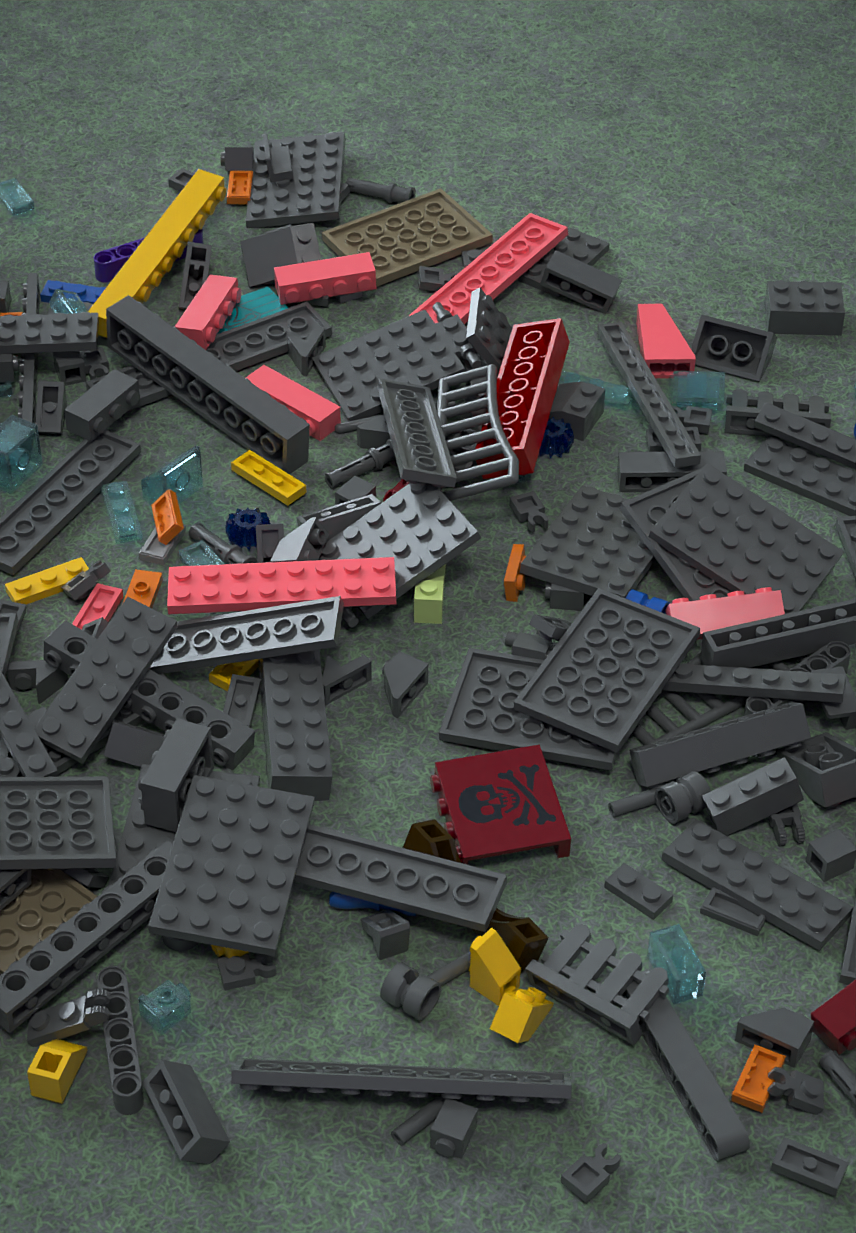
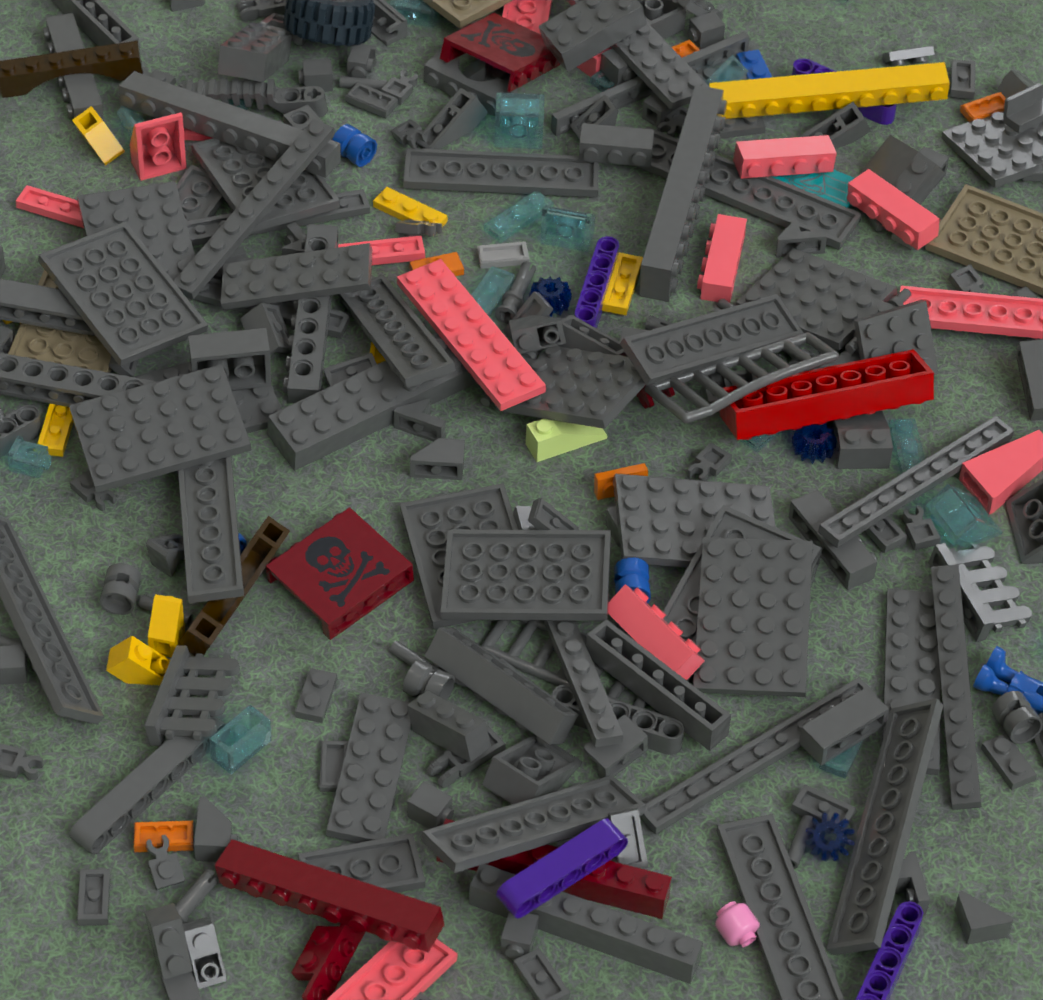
camera: 60 degrees right, 5 degrees up
(138, 199) = (898, 57): none -> plate
(140, 967) = (56, 429): none -> yellow plate
(167, 516) = (519, 241): orange plate -> none
(257, 491) = (597, 281): none -> dark purple beam

